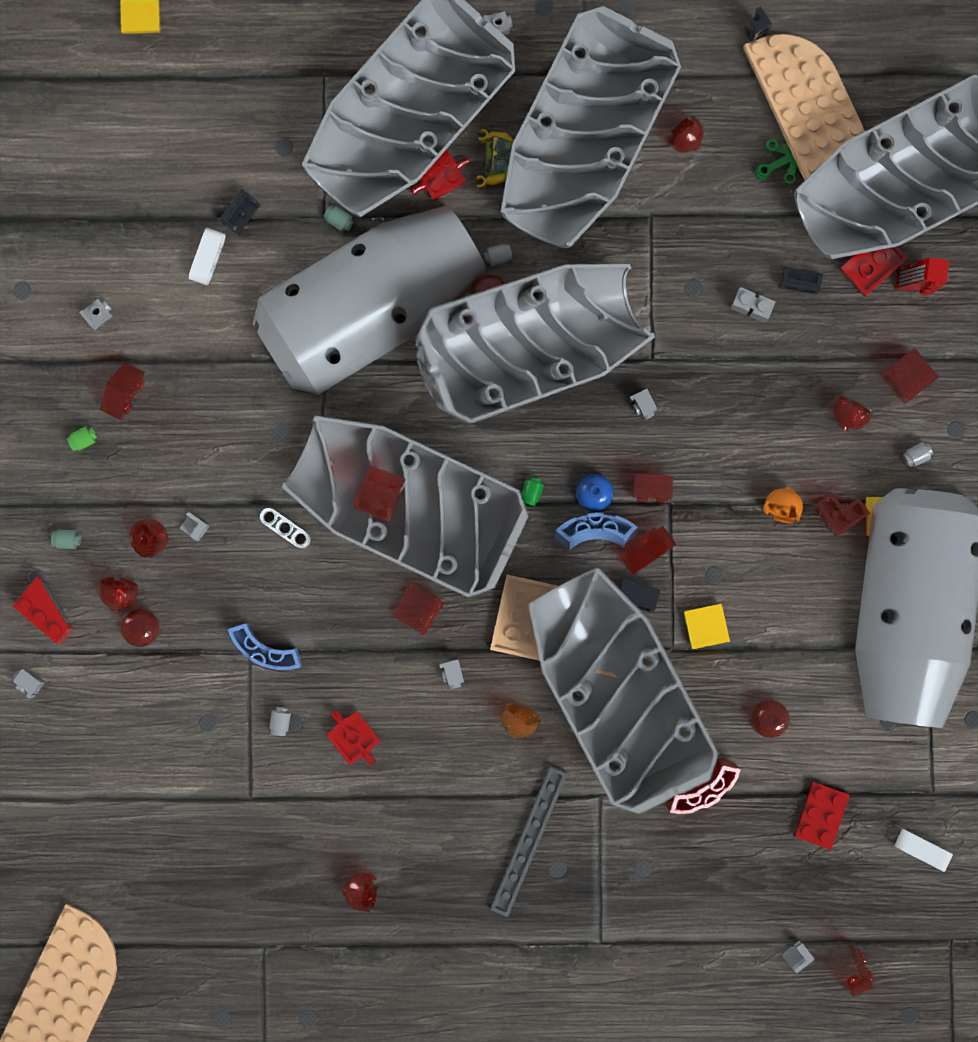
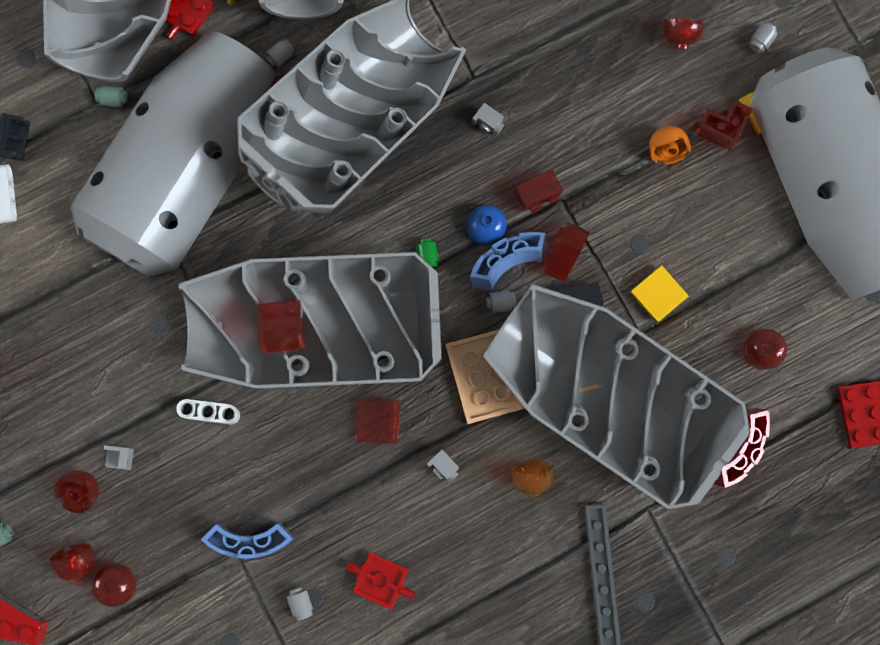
camera: 30 degrees left, 5 degrees down
(571, 563) = (500, 301): none -> light grey brick

